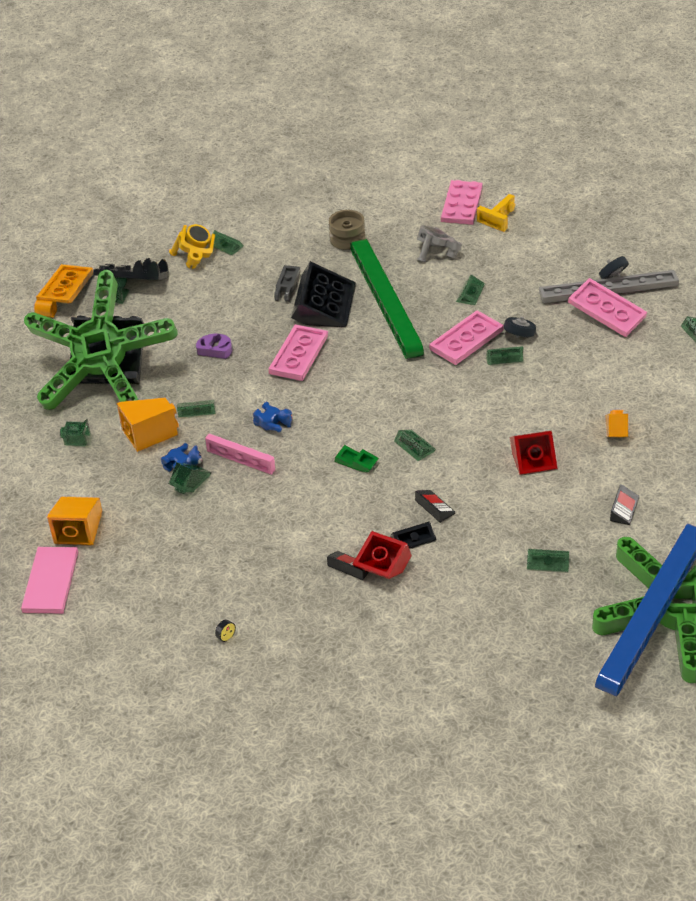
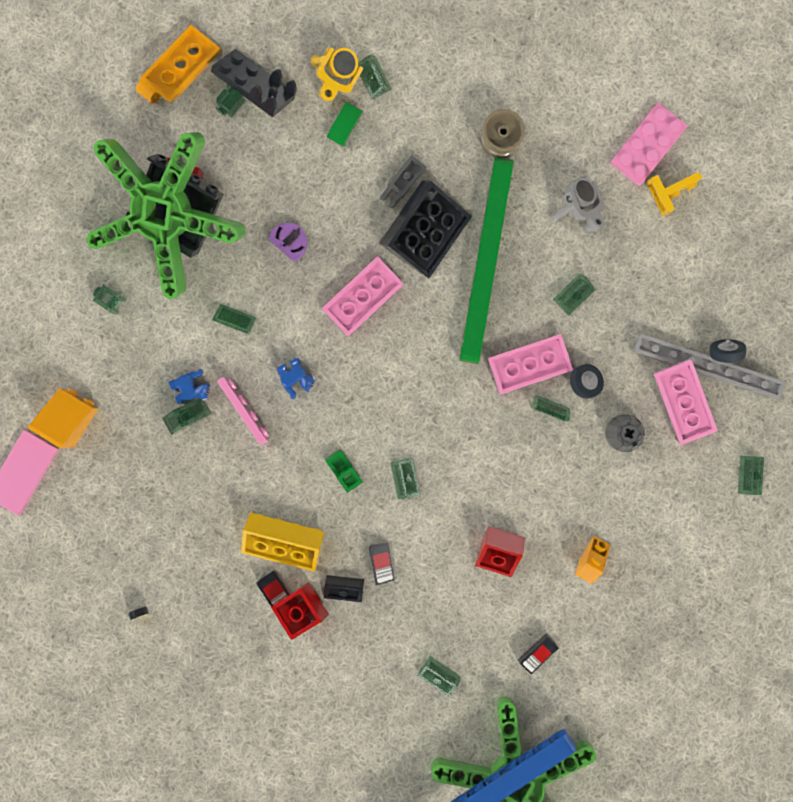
camera: 20 degrees right, 45 degrees up
(147, 421) = (172, 331): light orange slope -> none
(218, 272) = (344, 124): none -> green slope
(332, 524) = (282, 541): none -> yellow slope
(577, 344) = (625, 433): none -> dark grey piece

